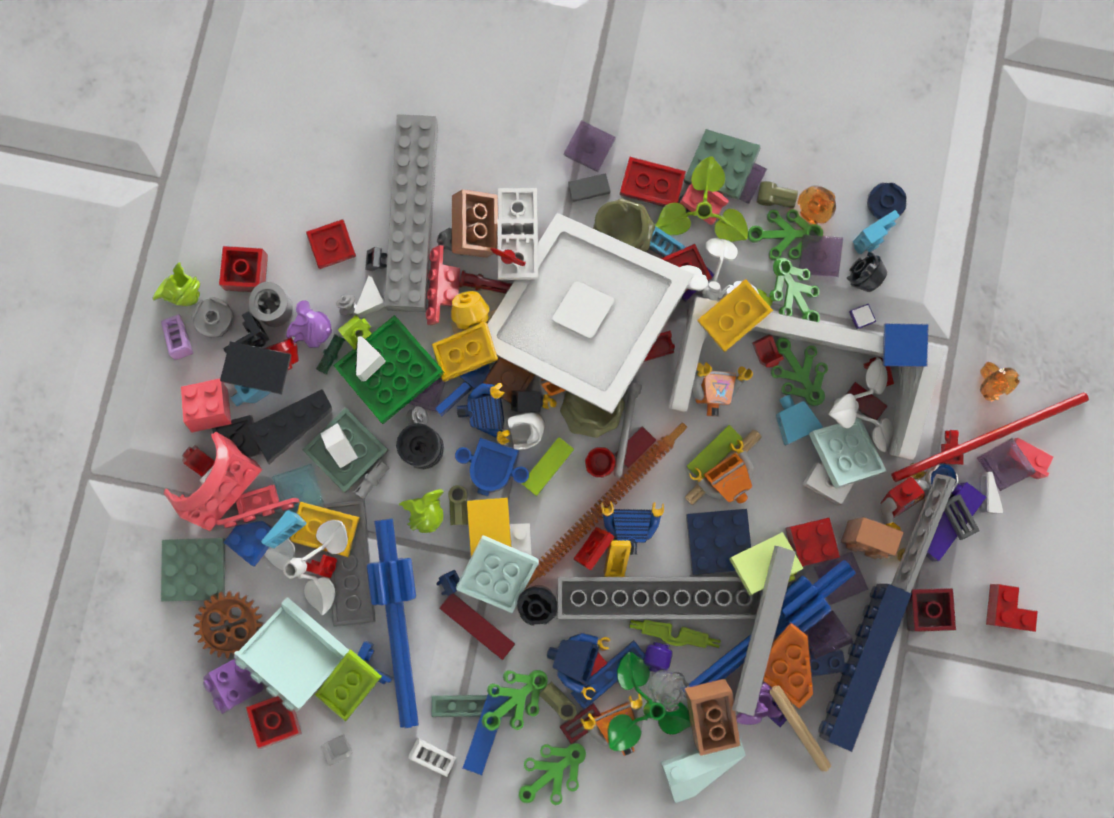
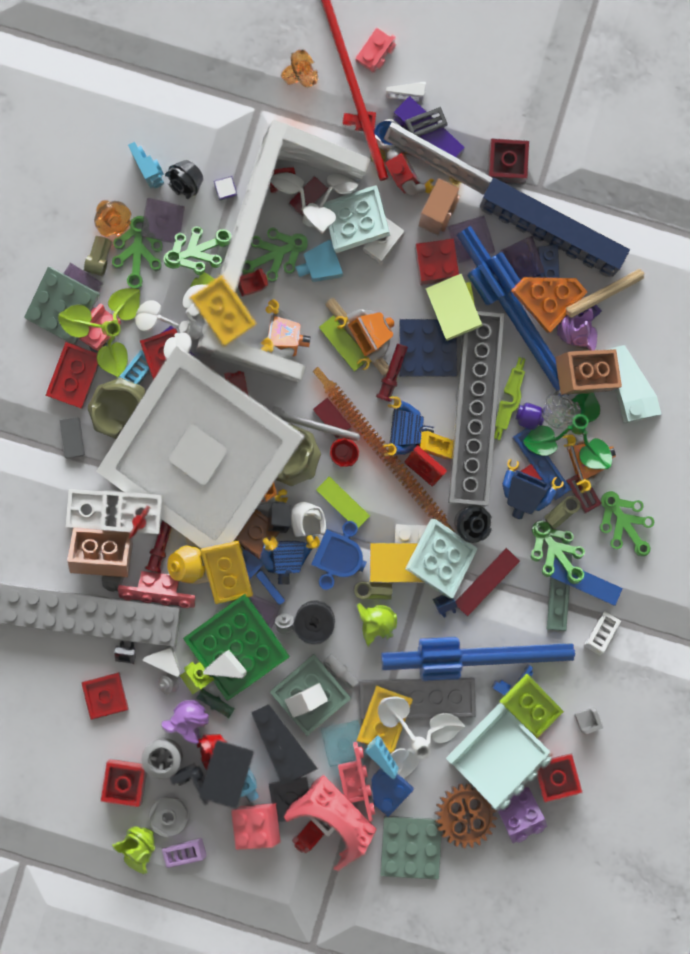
camera: 85 degrees left, 5 degrees up
(323, 568) = (421, 722): red bracket -> none
(589, 146) = (30, 433): clear purple plate -> none
(680, 503) = (389, 381): none -> dark red pin
(764, 631) = (515, 316): light grey tile -> none
(885, 199) = (113, 150): dark blue tile -> none
(905, 345) = (266, 154): blue tile -> none
(1003, 609) = (515, 93): red brick -> none
(1006, 463) = (380, 72): clear purple plate -> none

